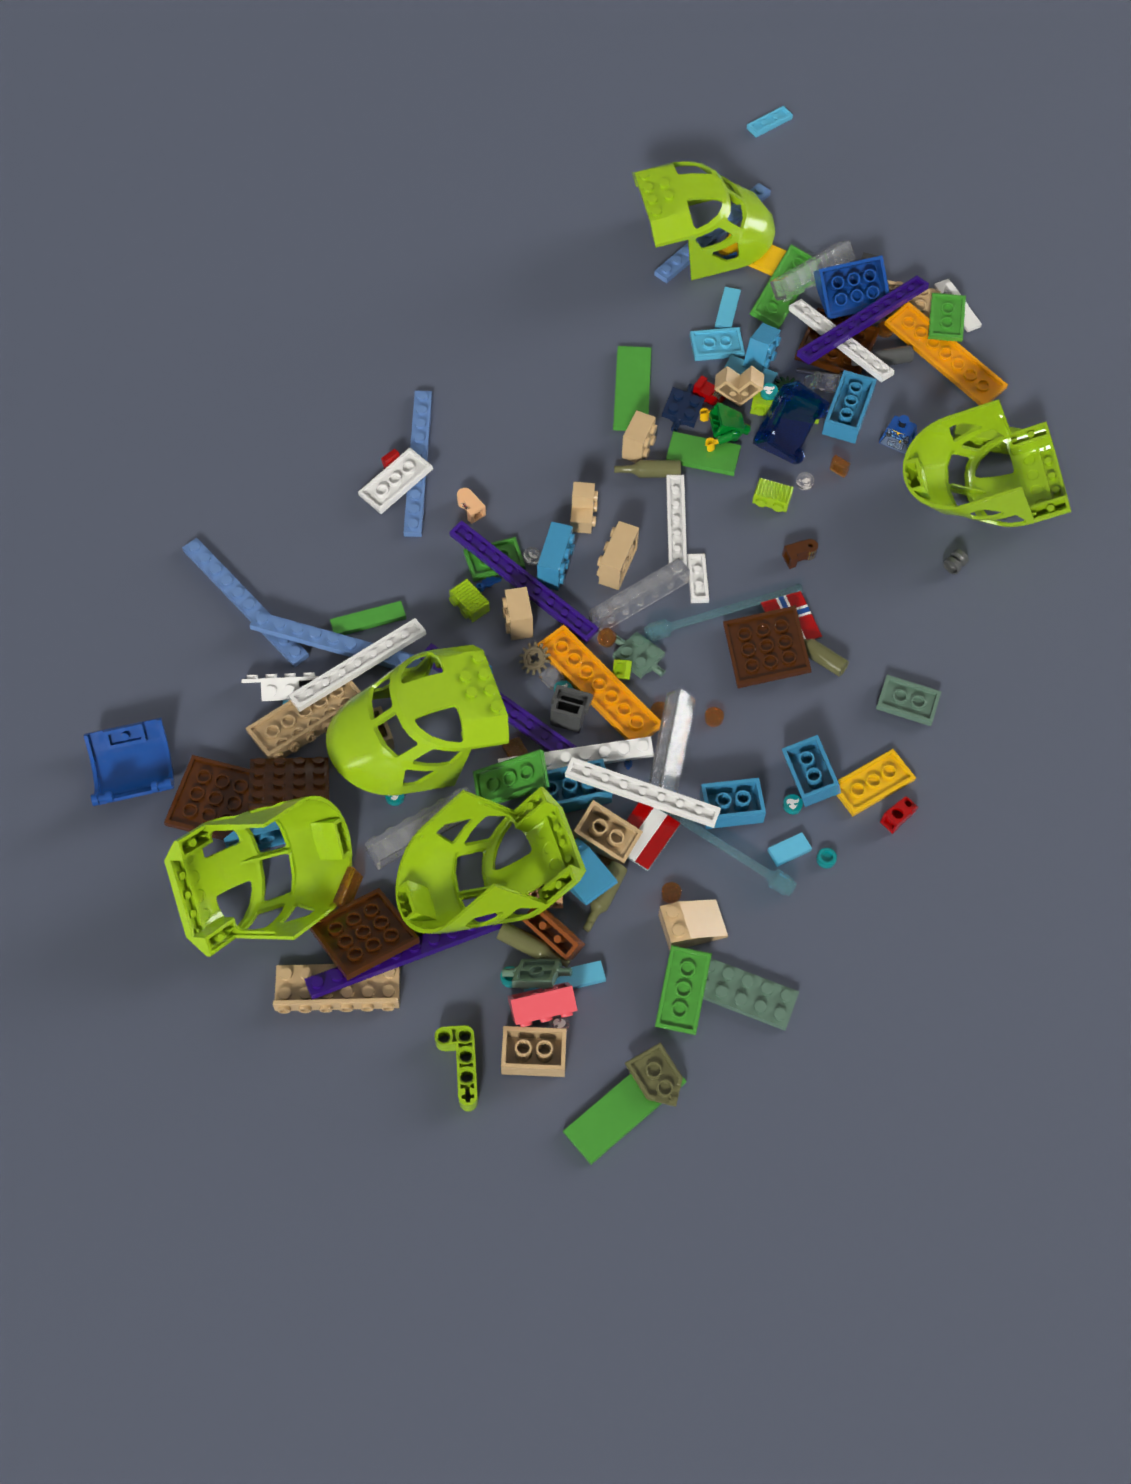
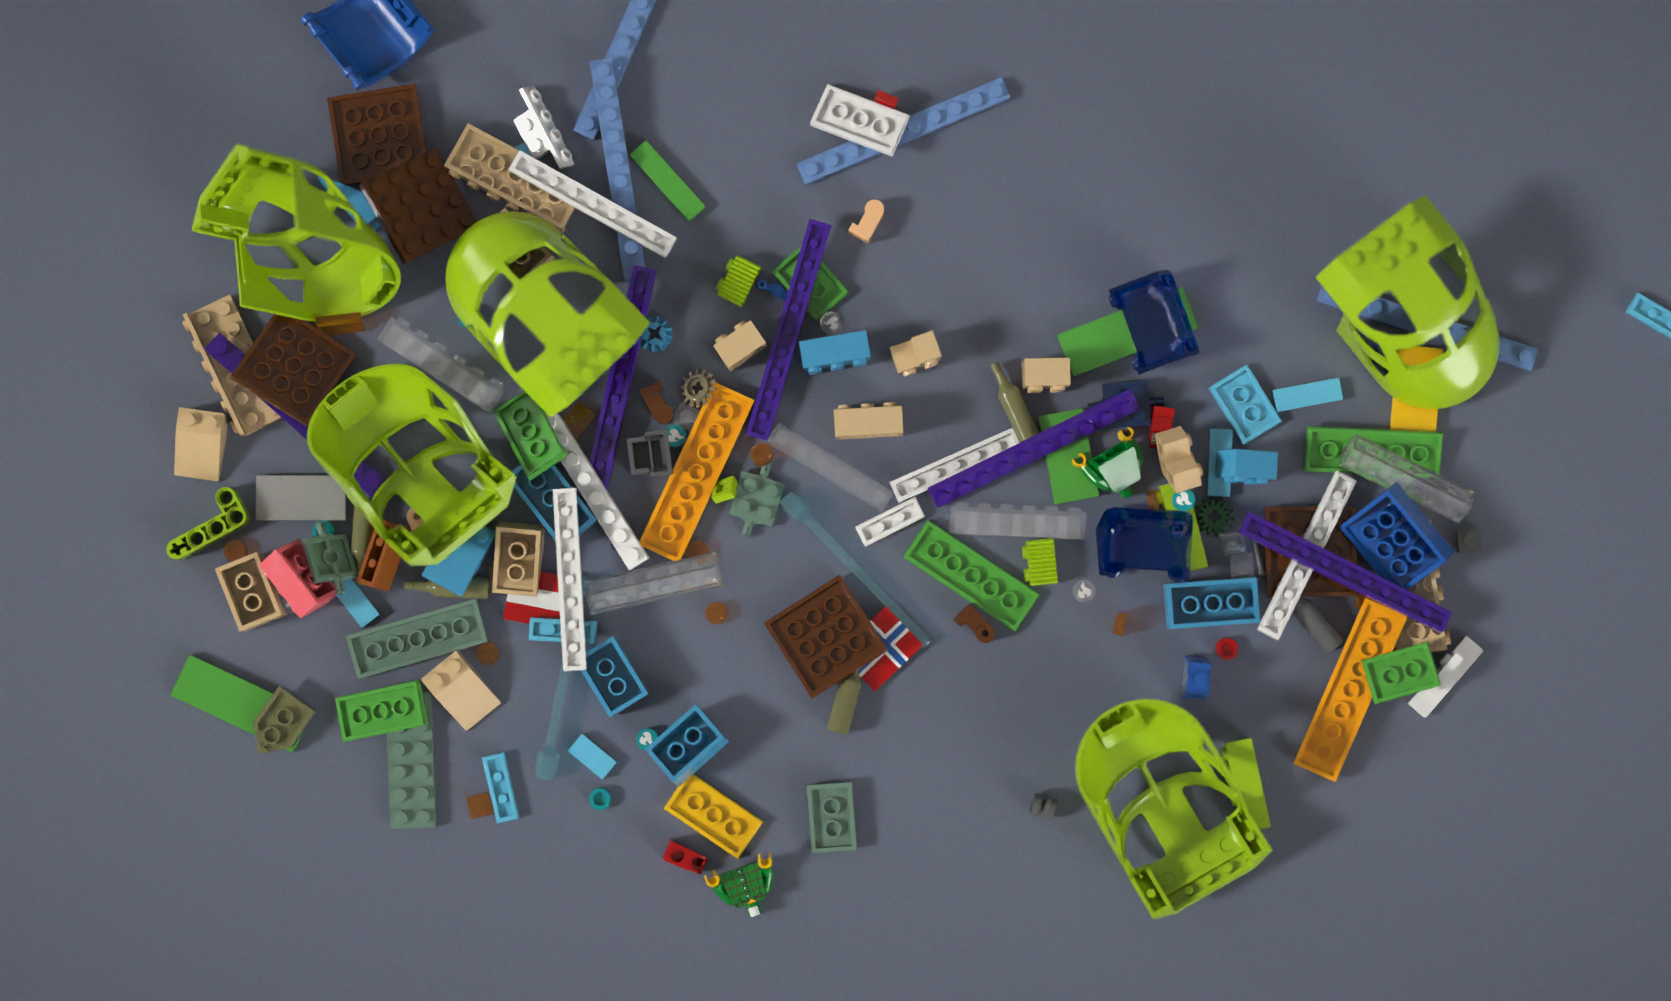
camera: 70 degrees right, 25 degrees up
(387, 1042) = (200, 443): none -> tan slope
(473, 983) = (299, 498): none -> light grey tile
(492, 1055) = (235, 550): none -> clear orange tile
(532, 691) = (661, 412): none -> reddish brown leg
(634, 363) = (1155, 320): none -> clear blue windscreen
(634, 940) = (417, 638): none -> sand green plate
(674, 833) = (550, 630): none -> medium azure tile
(688, 467) = (1033, 448): none -> dark purple plate
(736, 499) = (1017, 522): none -> clear brick
(758, 415) = (1152, 499): none -> clear orange tile
(761, 543) = (971, 575): none -> bright green tile
(786, 928) = (500, 787): none -> medium azure tile
(794, 950) = (480, 805): none -> clear orange tile
(884, 415) = (1226, 648): none -> red tile
(939, 776) = (744, 884): none -> green torso

